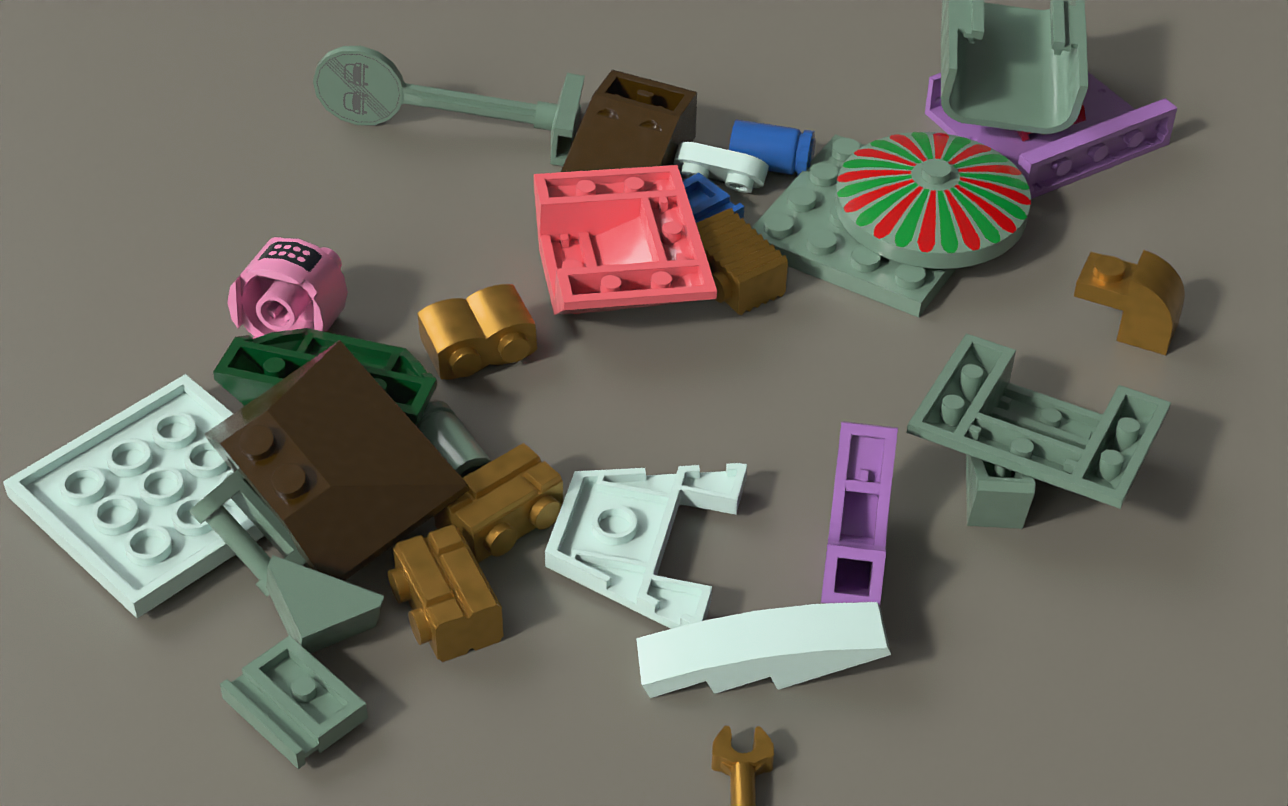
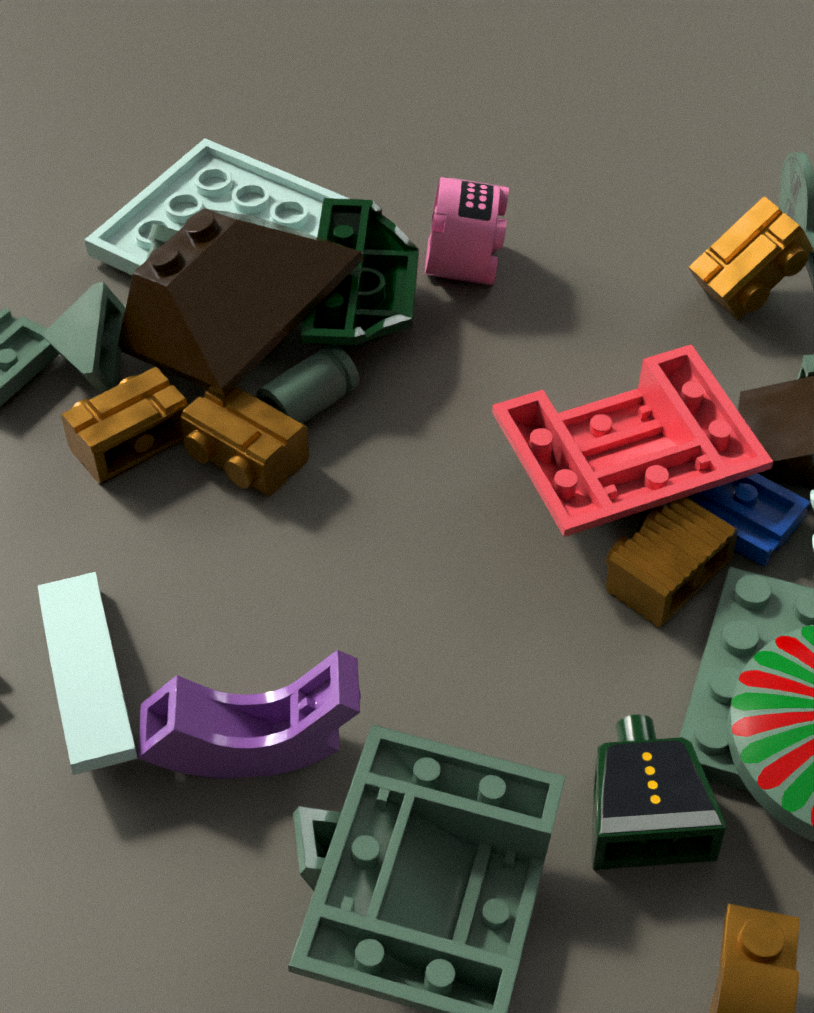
camera: 80 degrees right, 5 degrees up
(419, 129) = (752, 258): none -> pearl gold brick
(477, 331) = (476, 372): pearl gold brick -> none
(618, 530) = (230, 534): light aqua wing -> none
(951, 309) = (652, 801): none -> torso

